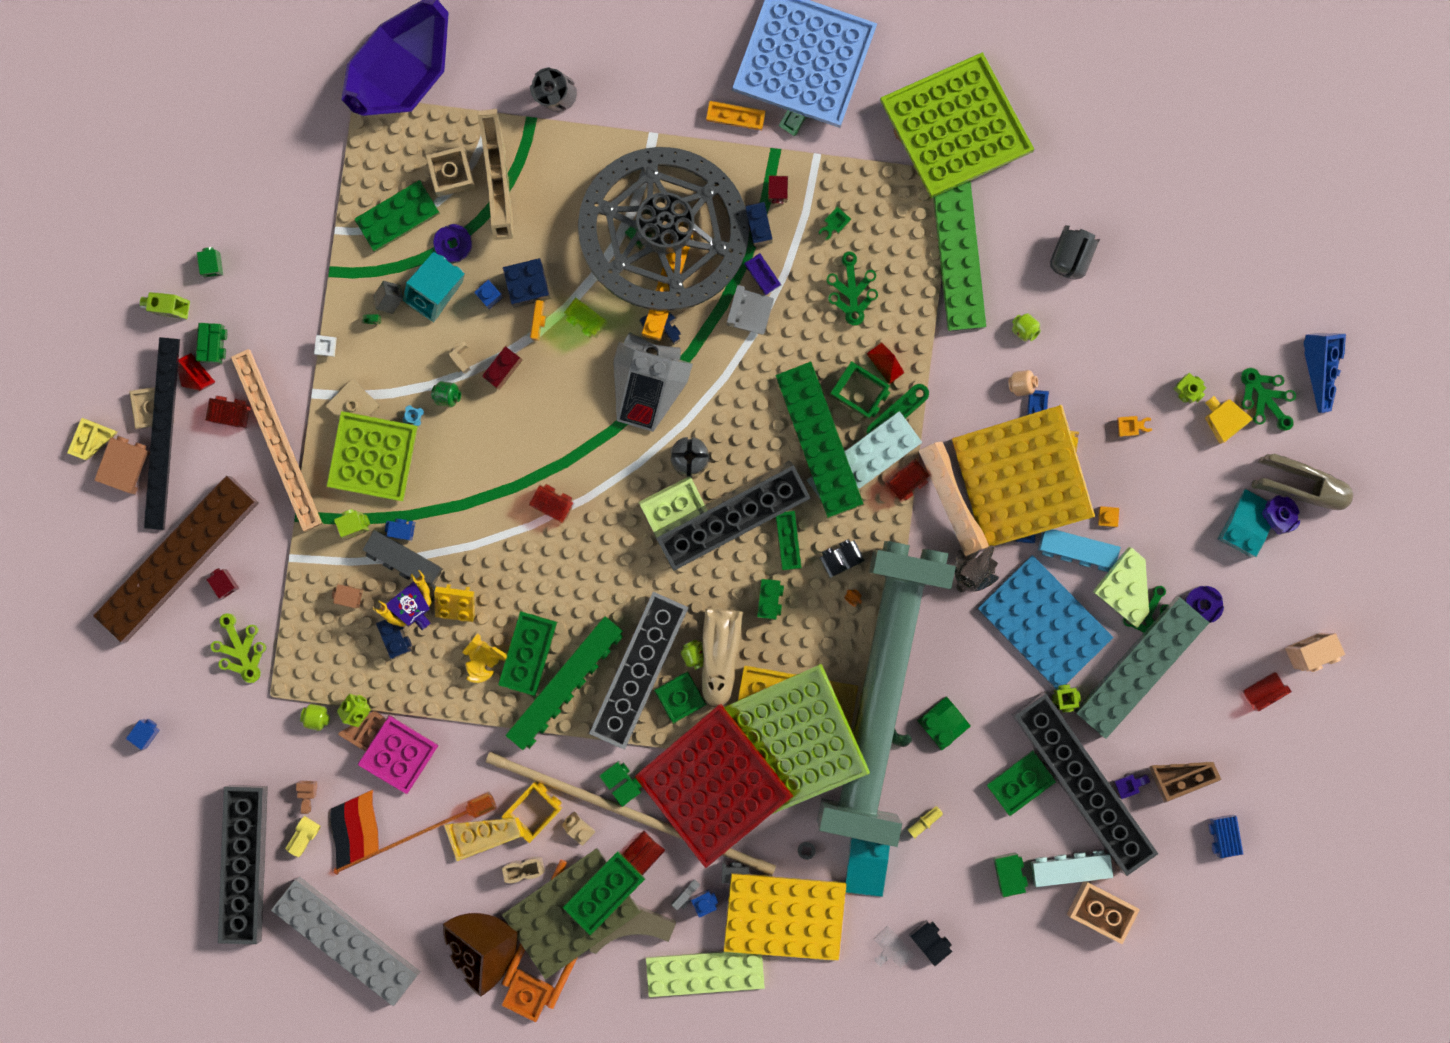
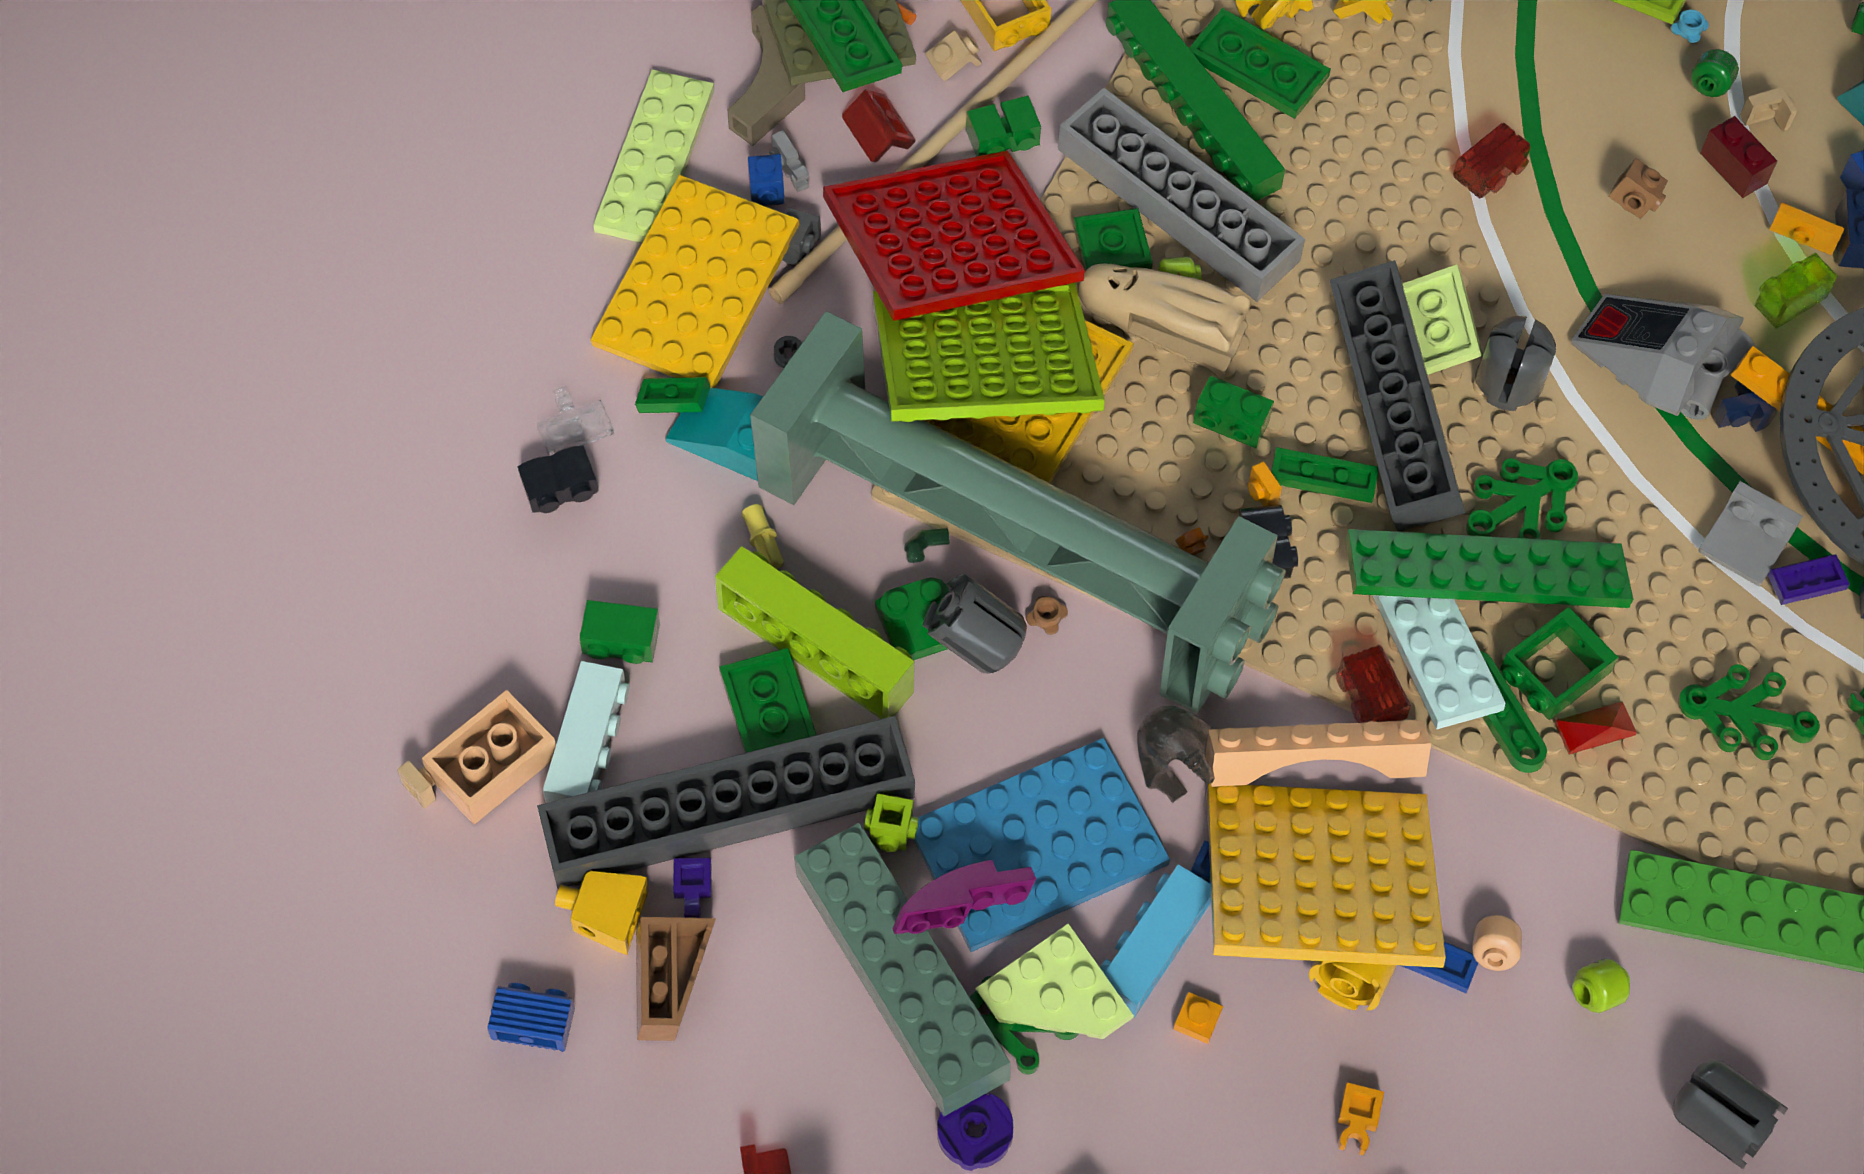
camera: 100 degrees right, 25 degrees down
(545, 418) = (1639, 189): none -> medium nougat brick
(763, 431) = (1524, 497): none -> green plant
(808, 570) = (1263, 485): none -> light orange plate
(859, 901) = (672, 395): none -> green plate
(921, 656) = (1047, 605): none -> medium nougat plate
(947, 706) = (976, 625): none -> dark grey cylinder
(978, 773) = (815, 633): none -> lime brick
(1108, 653) = (951, 896): none -> magenta slope
(1128, 944) = (418, 783): none -> tan plate
(1158, 822) = (606, 907): none -> yellow torso

